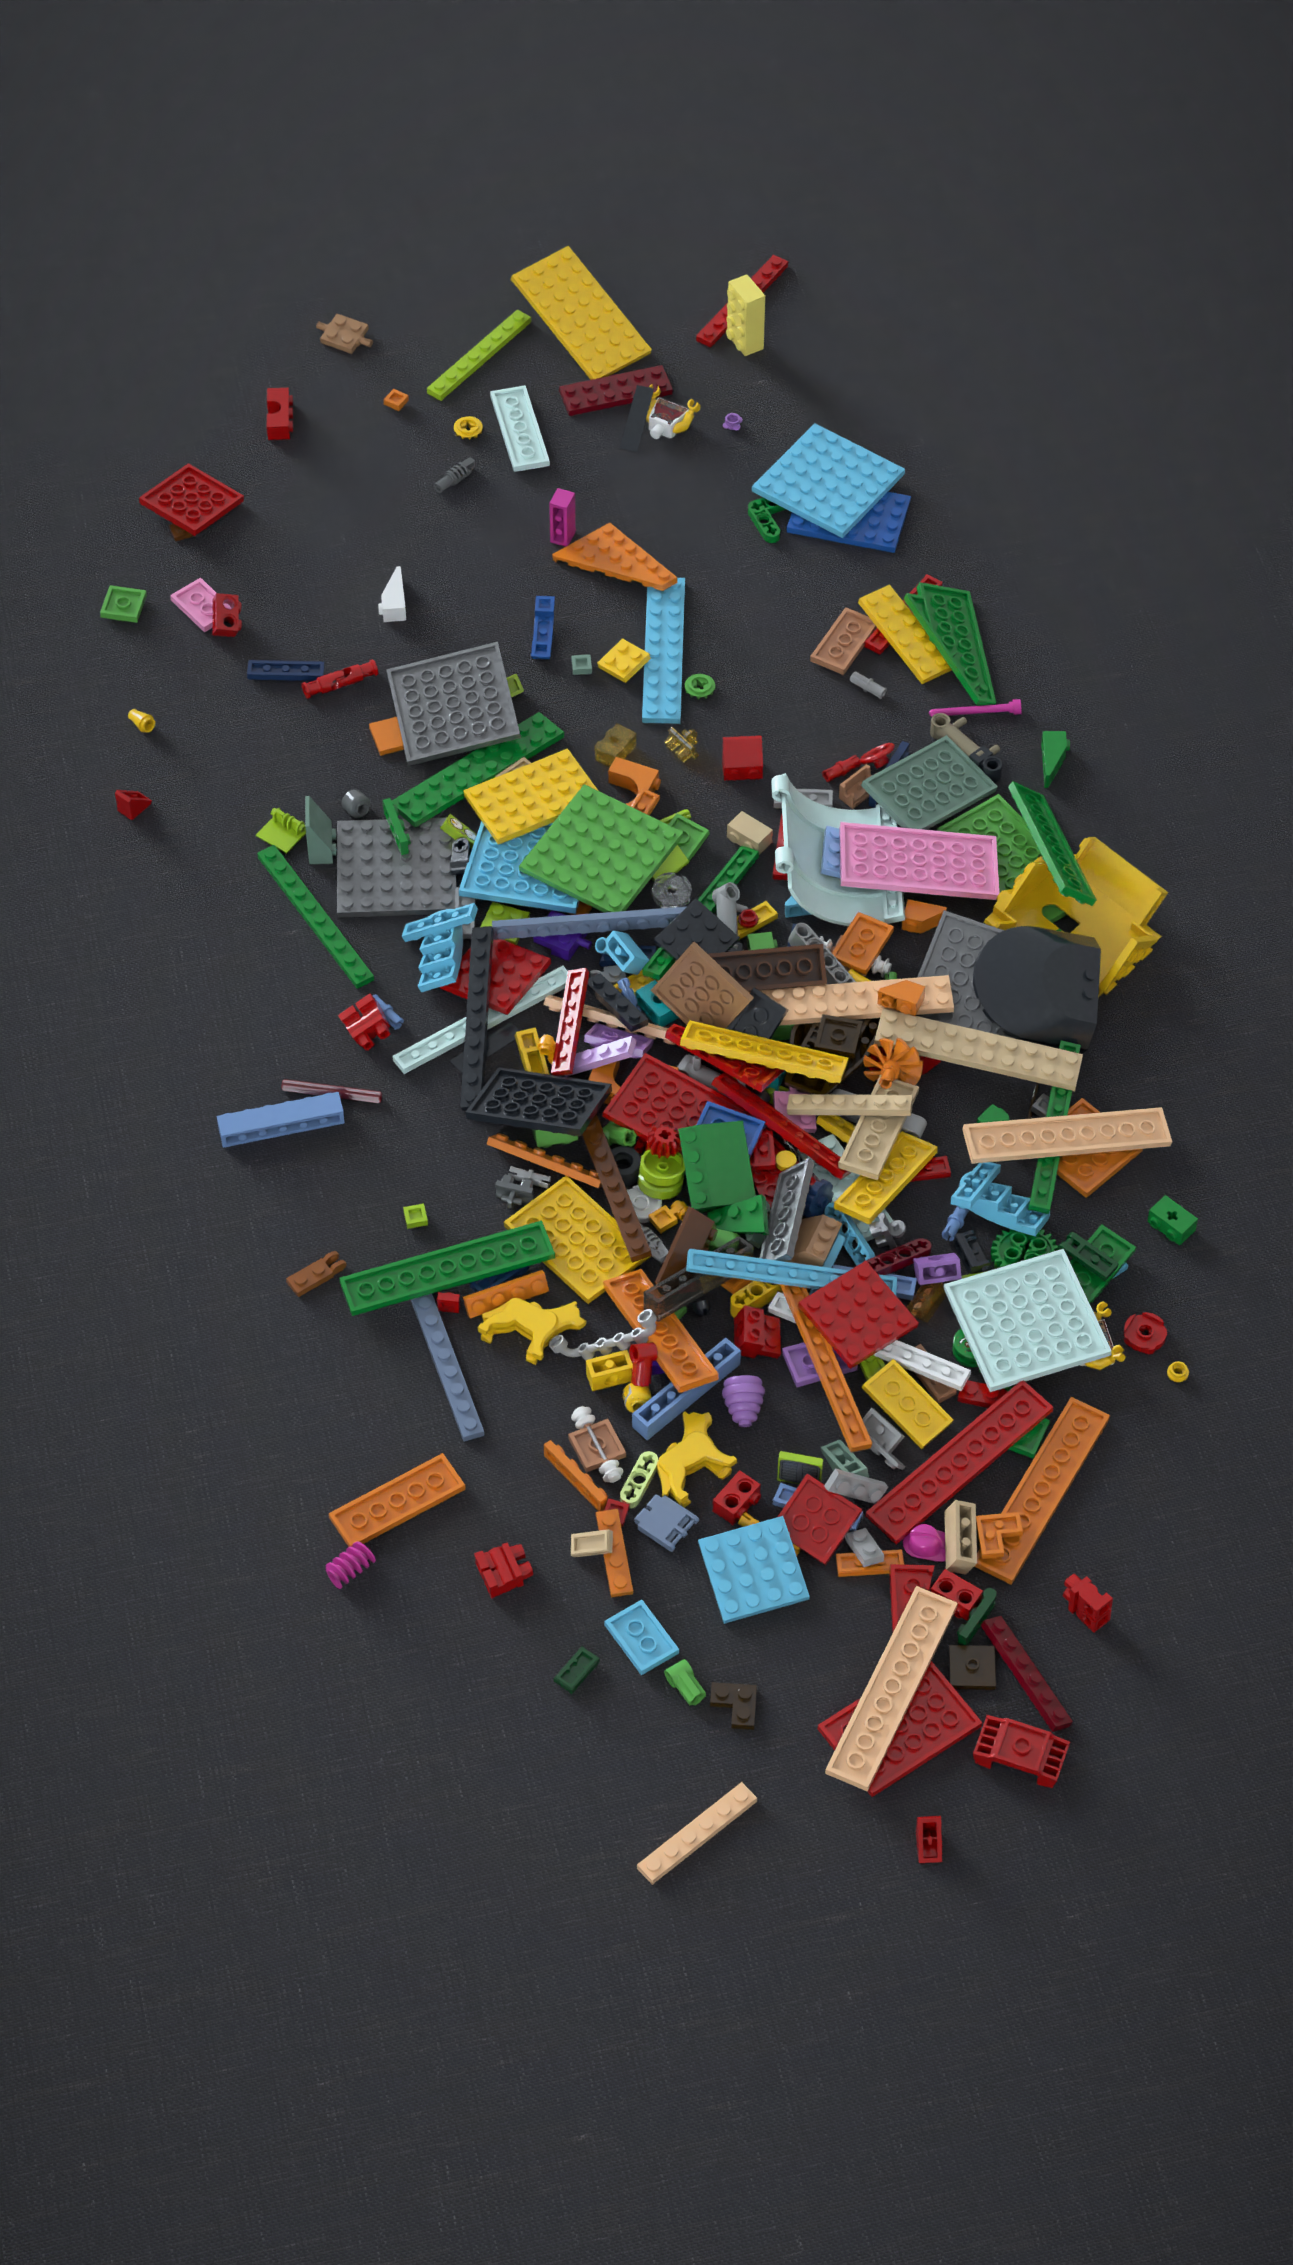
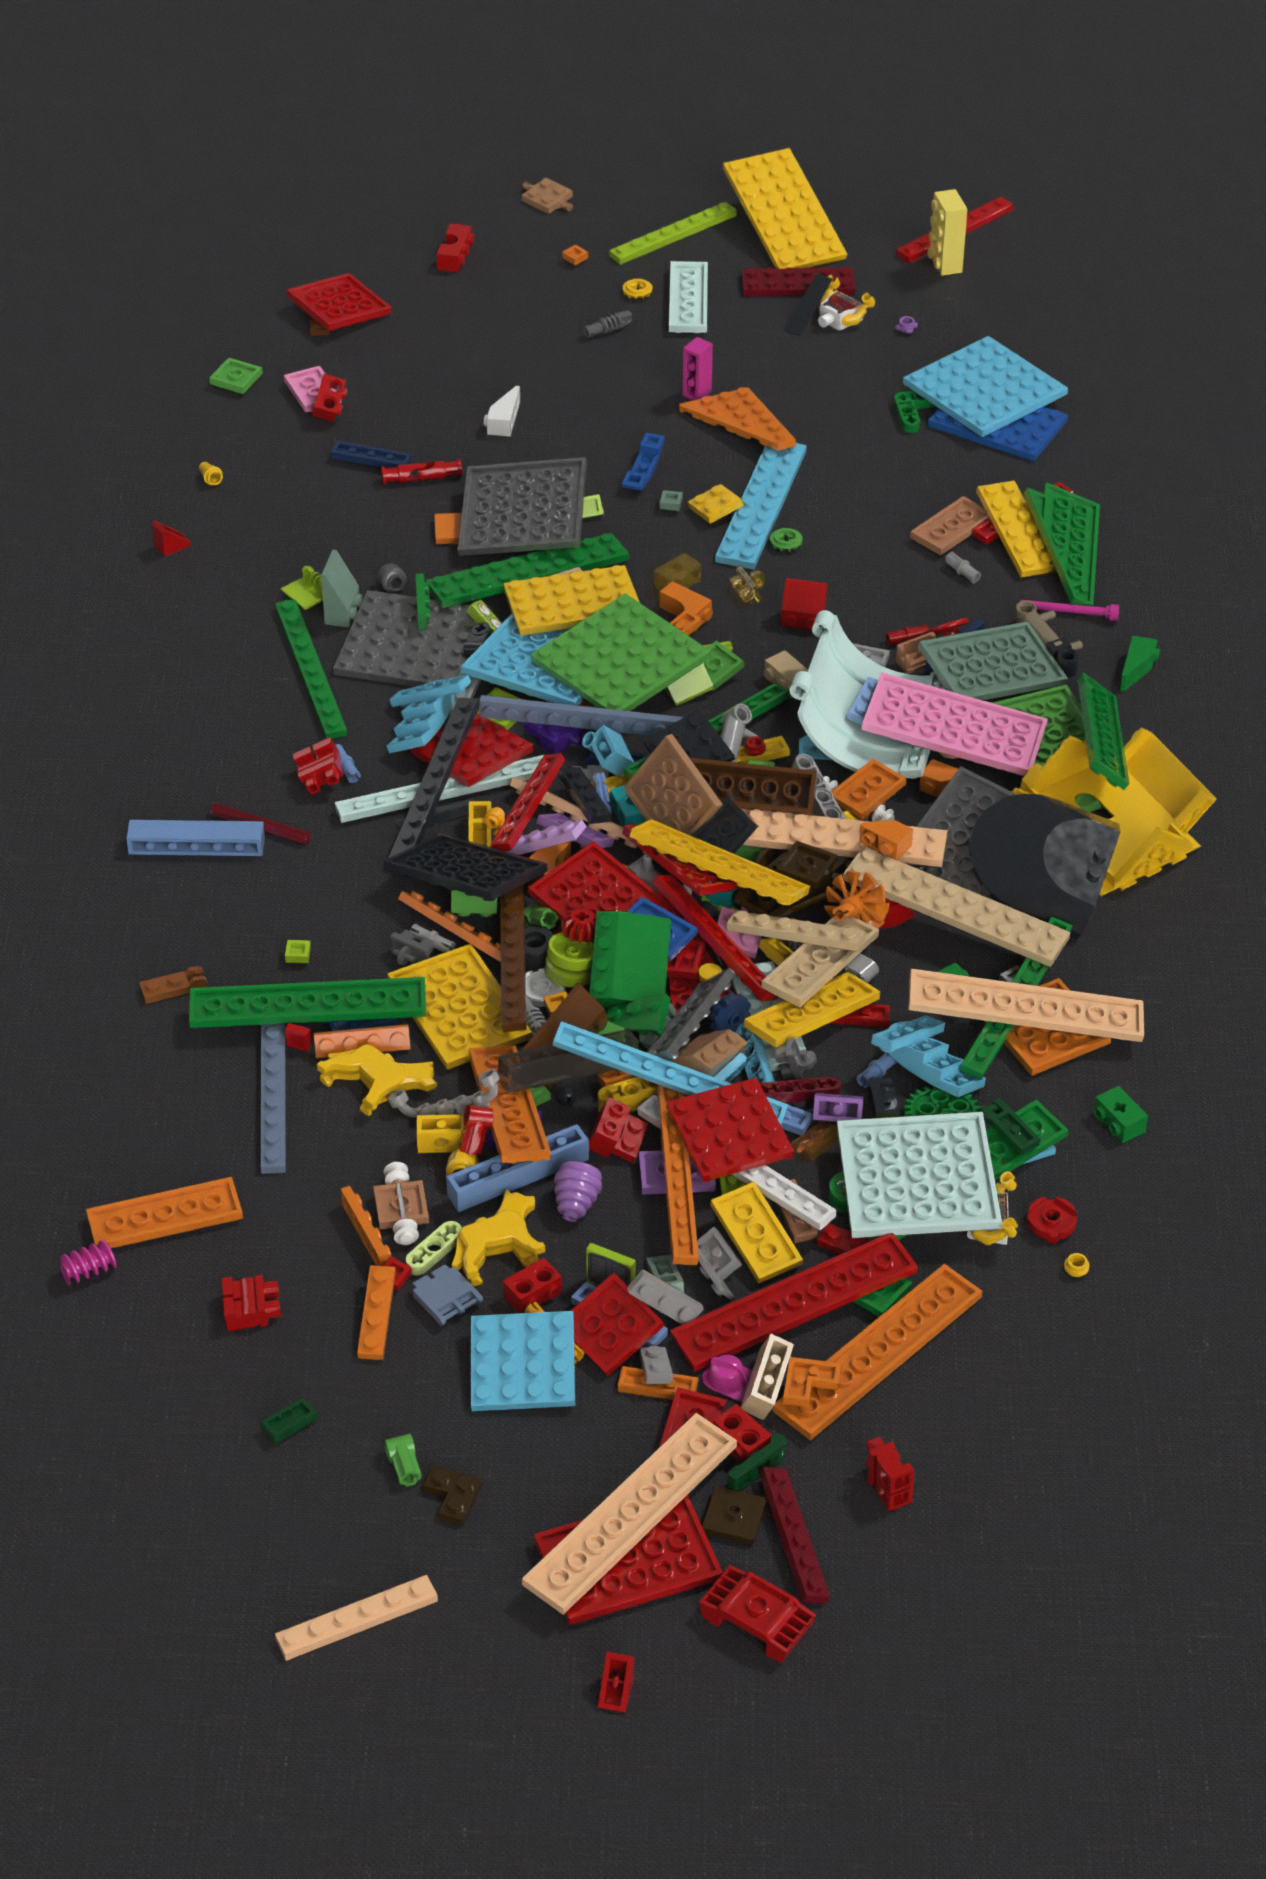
camera: 15 degrees right, 10 degrees down
(591, 1543) = (354, 1296): tan tile -> none
(641, 1637) = (373, 1403): medium azure plate -> none
(675, 882) = (683, 700): clear plate -> none

